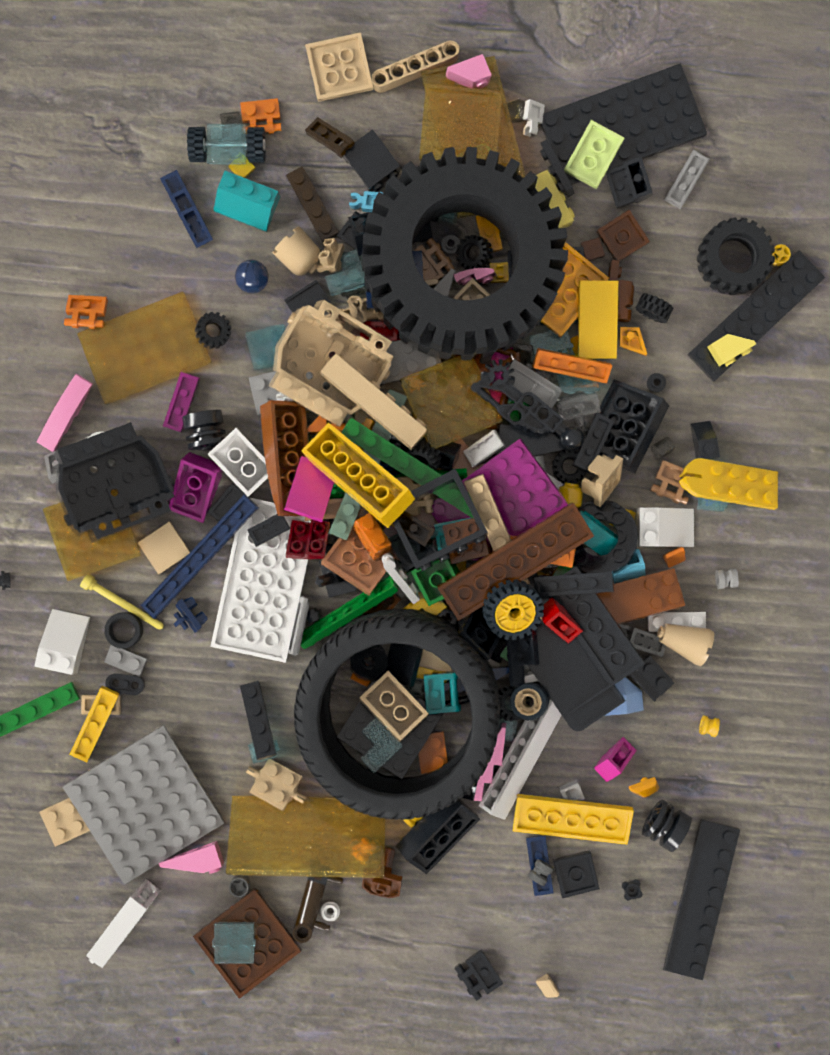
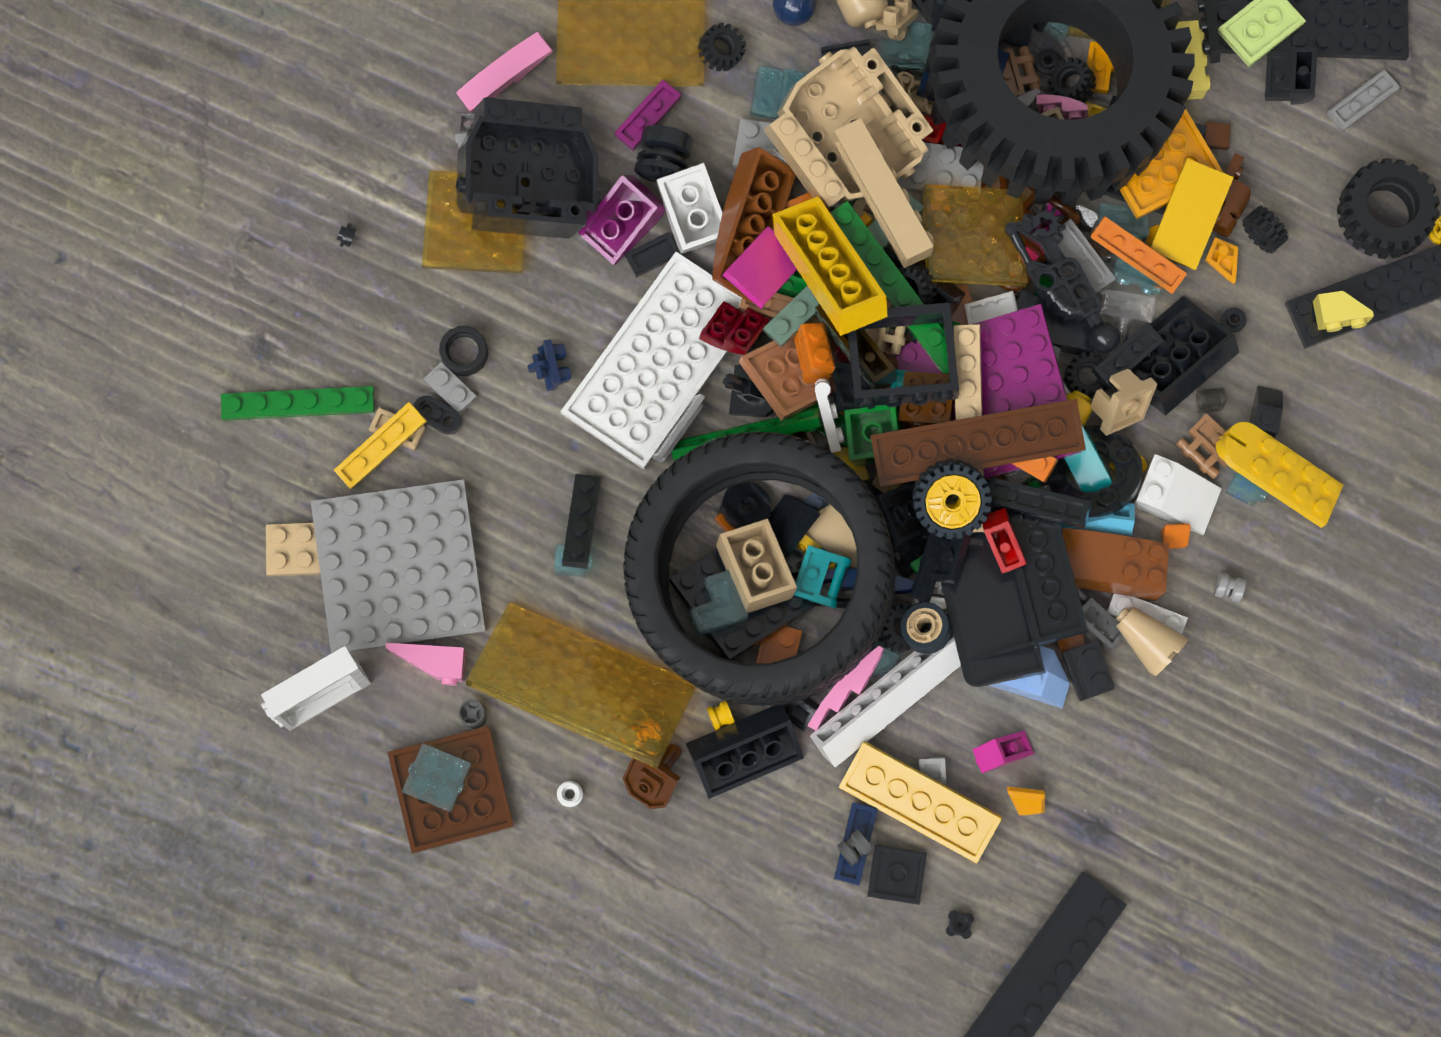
camera: 20 degrees right, 10 degrees down
(62, 642) = (384, 336): white slope -> none
(90, 583) = (447, 280): light yellow piece -> none
(164, 547) = (554, 275): tan tile -> none
(199, 556) = (593, 301): dark blue tile -> none
(268, 529) = (691, 300): black plate -> none
(276, 784) = (569, 609): tan plate -> none
(310, 907) = (551, 772): dark brown piece -> none
(313, 615) = (701, 425): black plate -> none
(483, 971) = (730, 948): black plate -> none
(547, 986) = (803, 1002): tan slope -> none
(623, 236) = (1260, 134): reddish brown plate -> none
(667, 825) = (1035, 855): black wheel -> none
(709, 726) = (1138, 758): yellow wheel -> none

